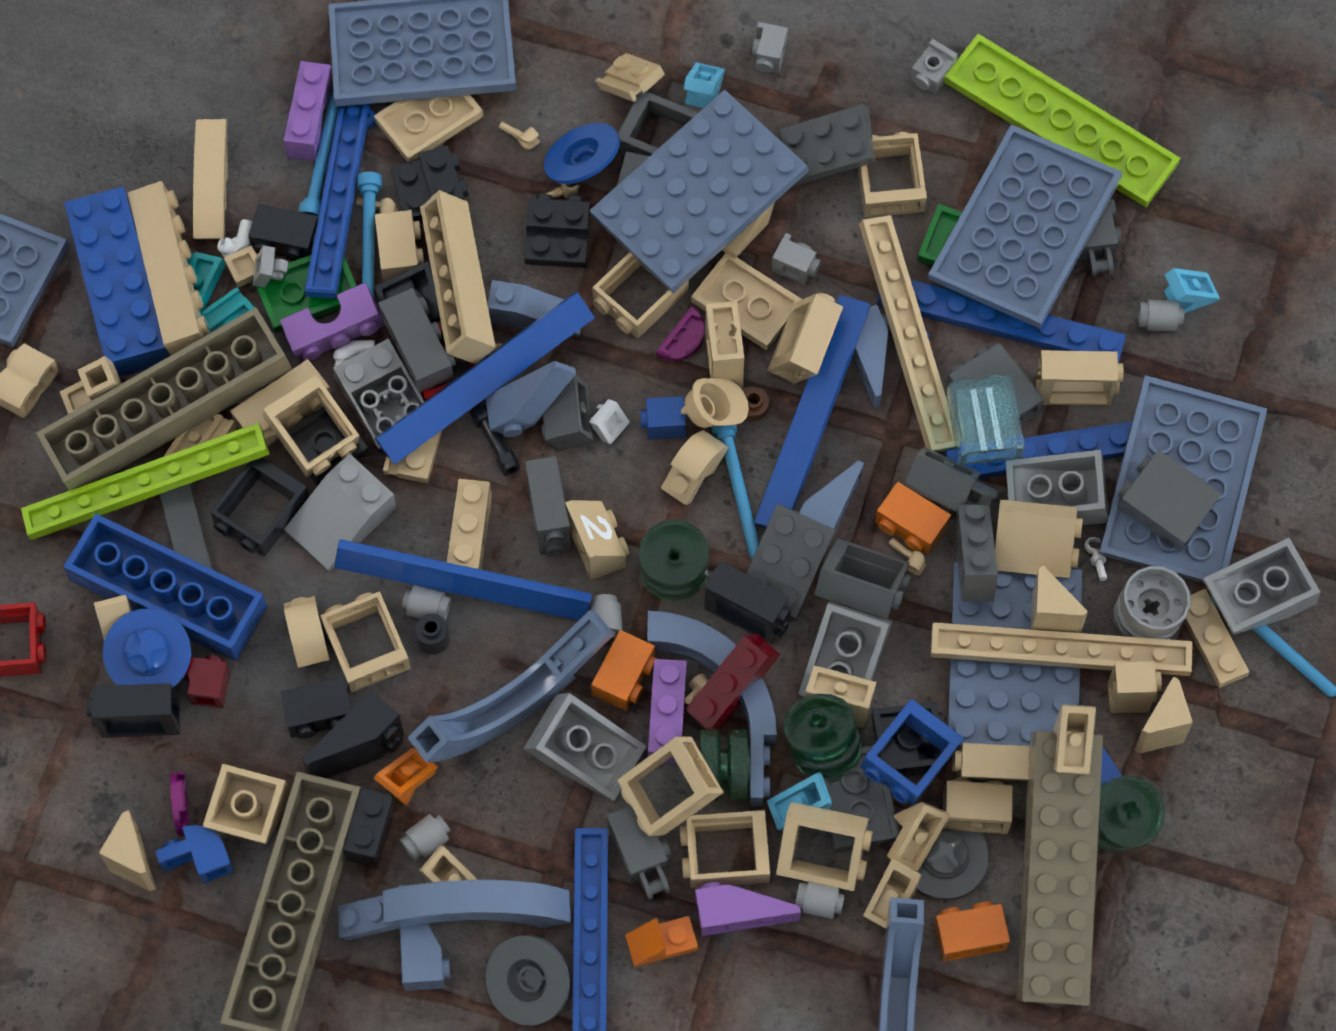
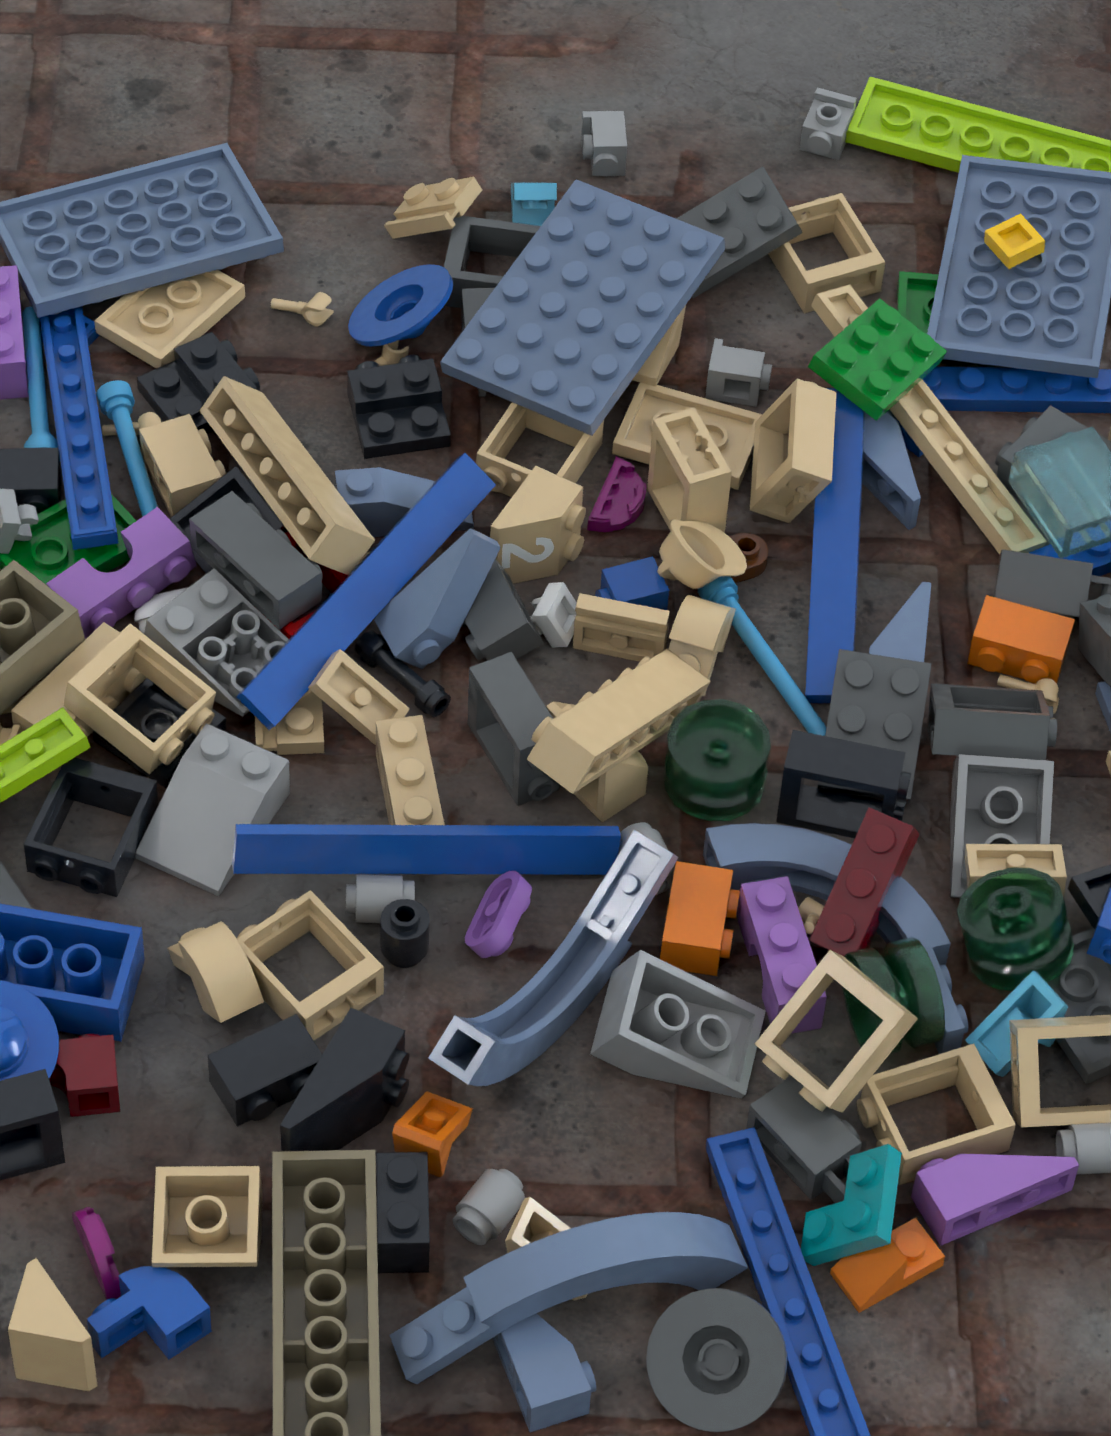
camera: 20 degrees left, 15 degrees down
(456, 453) = (356, 694): none -> tan plate
(497, 635) = (498, 915): none -> medium lavender plate
(608, 525) = (615, 720): none -> tan brick
(613, 356) = (540, 527): none -> tan slope
(644, 444) = (619, 628): none -> tan plate
(648, 912) = (863, 1217): none -> teal plate
(886, 282) = (877, 359): none -> green plate
(1016, 209) = (1014, 241): none -> yellow plate

